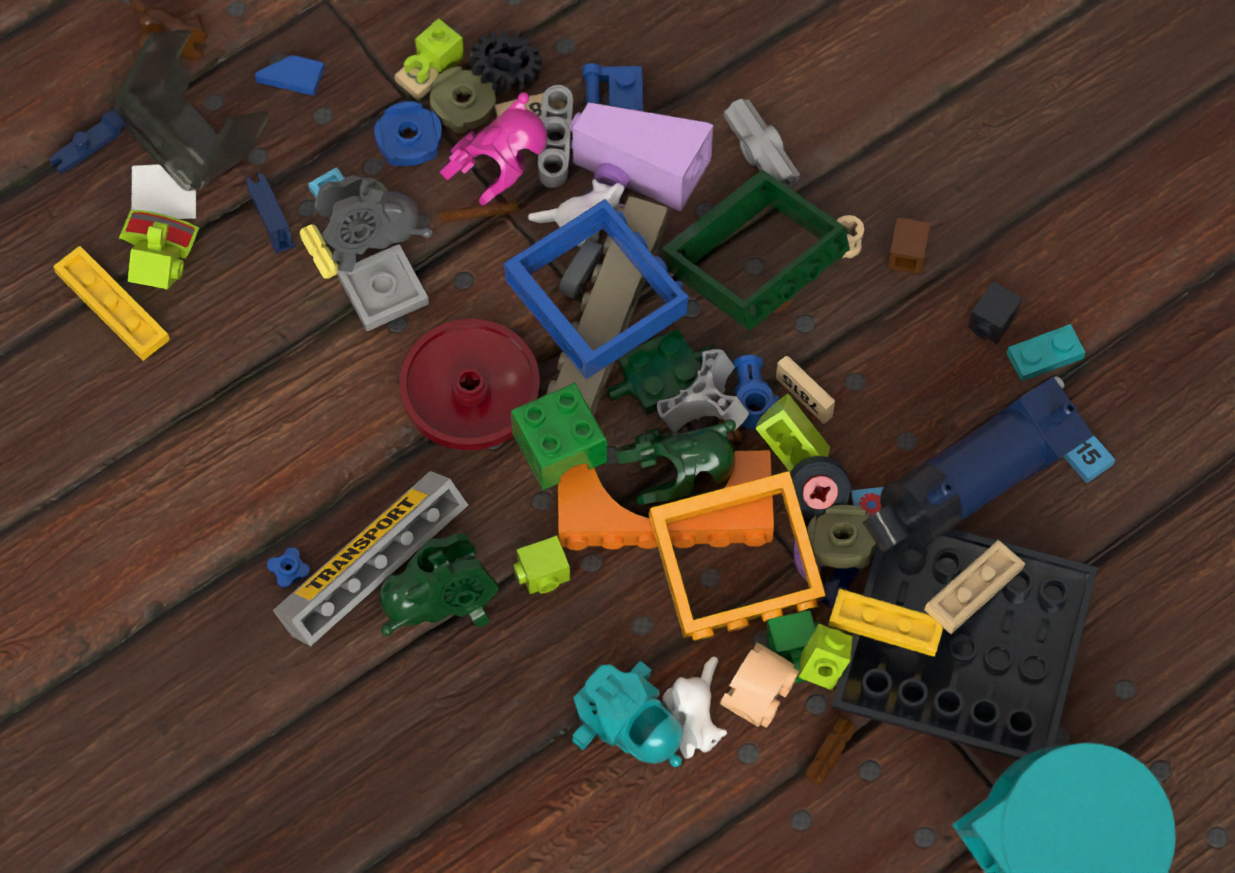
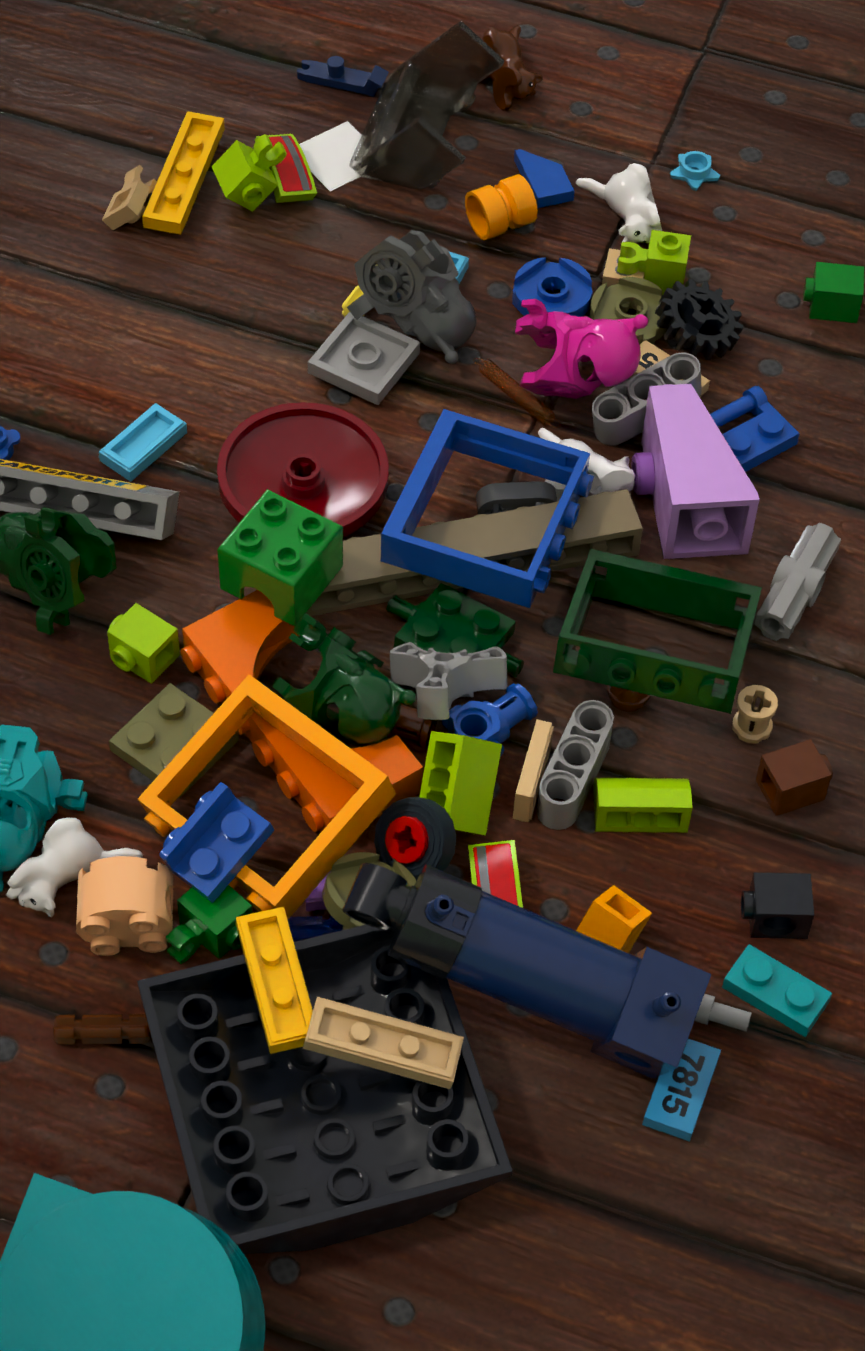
camera: 55 degrees right, 10 degrees down
(115, 356) = (128, 203): none -> tan plate
(270, 214) = (374, 230): dark blue piece -> none
(309, 118) = (502, 206): none -> light orange wheel
(354, 472) = (143, 442): none -> medium azure tile
(363, 32) = (630, 198): none -> white animal
(631, 590) = (162, 731): none -> olive plate
(762, 602) = (215, 842): none -> blue bracket
(815, 347) = (570, 781): none -> light grey beam
(825, 656) = (194, 939): lime brick -> none
(868, 341) = (642, 804): none -> lime brick
(874, 459) = (496, 870): none -> red slope
(954, 413) = (615, 919): none -> light orange brick

